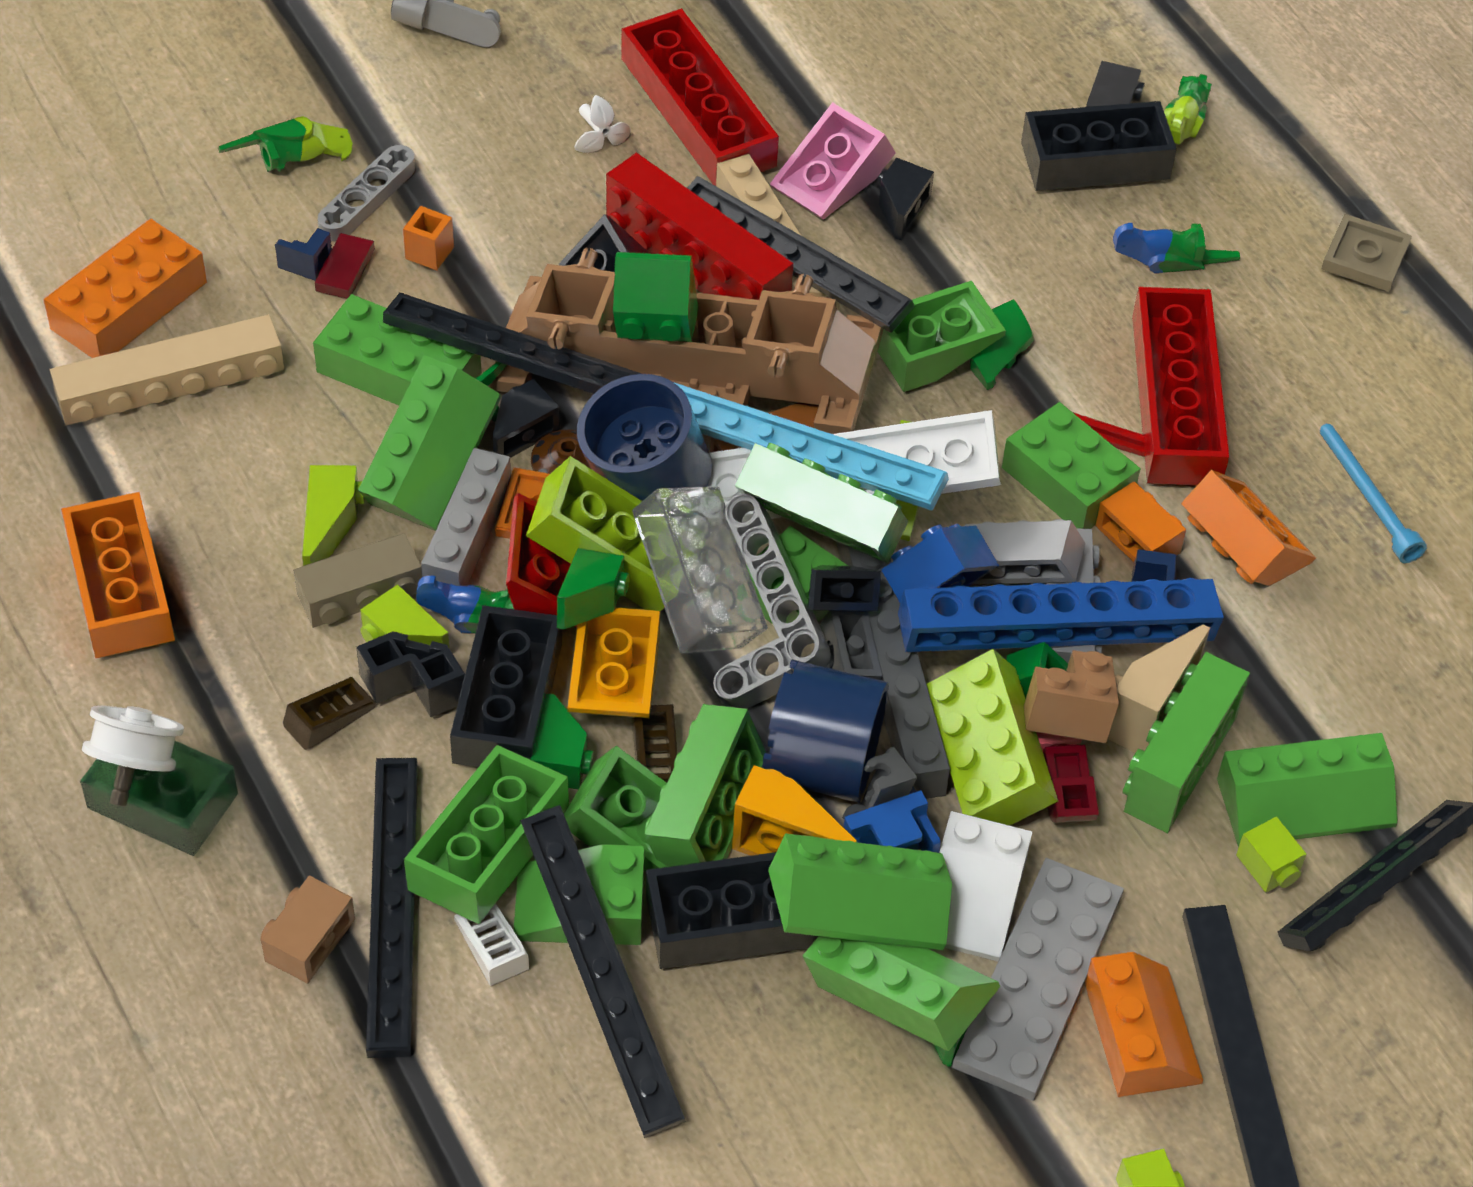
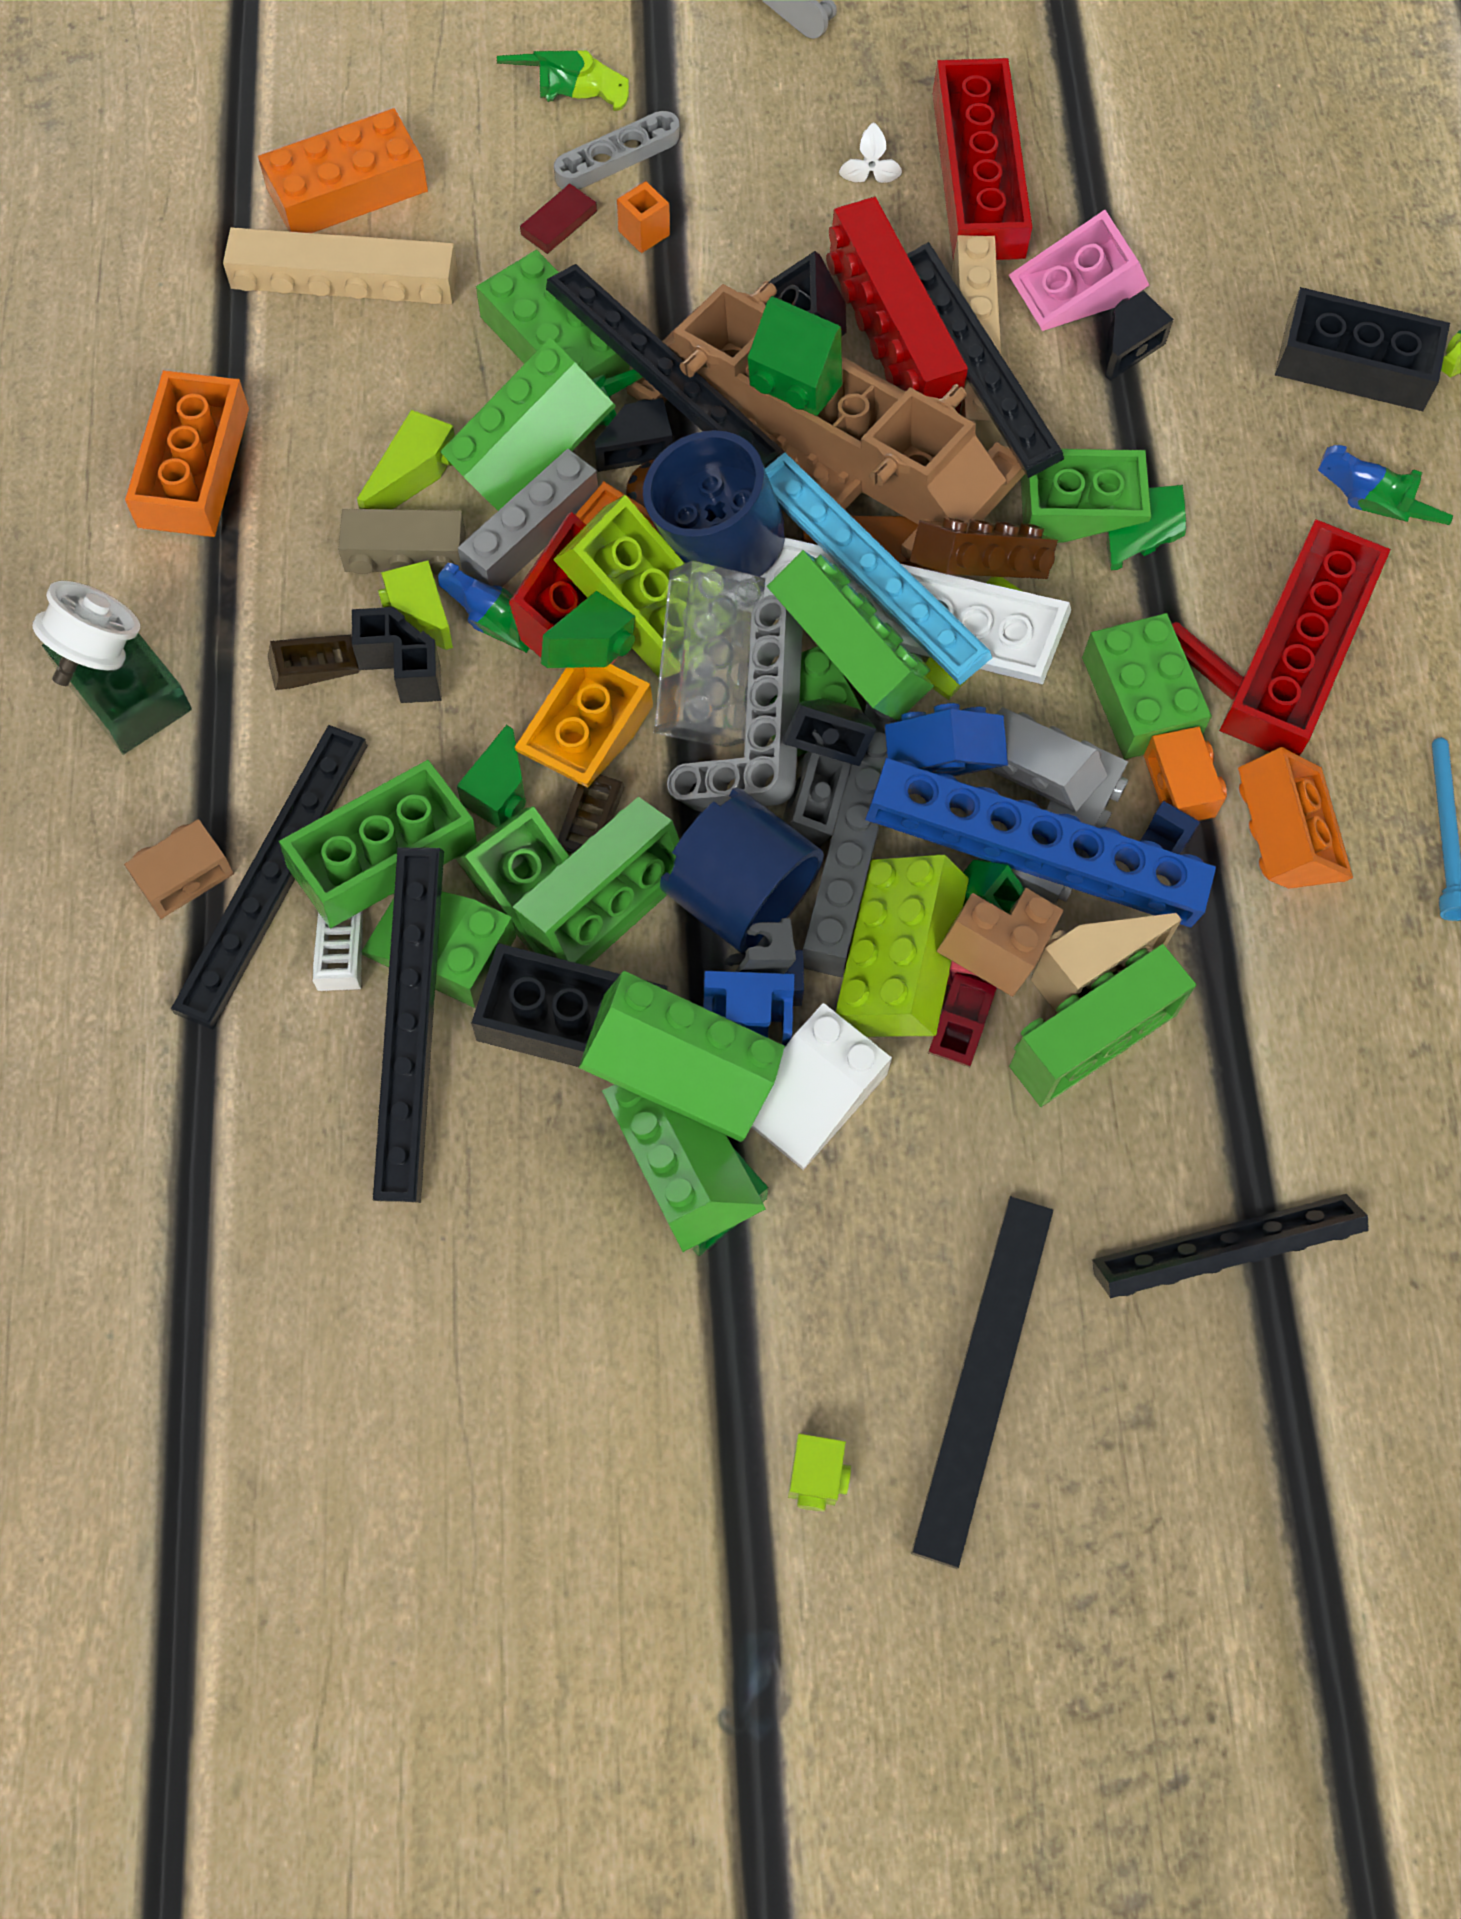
camera: 25 degrees right, 15 degrees up
(302, 257) = (525, 195): dark blue panel -> none
(505, 684) = (482, 688): black brick -> none
(776, 806) = (652, 943): light orange slope -> none
(887, 400) = (984, 549): none -> reddish brown brick
(1039, 979) = (830, 1204): light grey plate -> none
(1116, 85) = (1416, 291): black brick -> none
(1140, 1024) = (904, 1299): orange slope -> none
(1271, 855) = (1126, 1180): lime brick -> none
(1311, 786) = (1206, 1125): bright green slope -> none

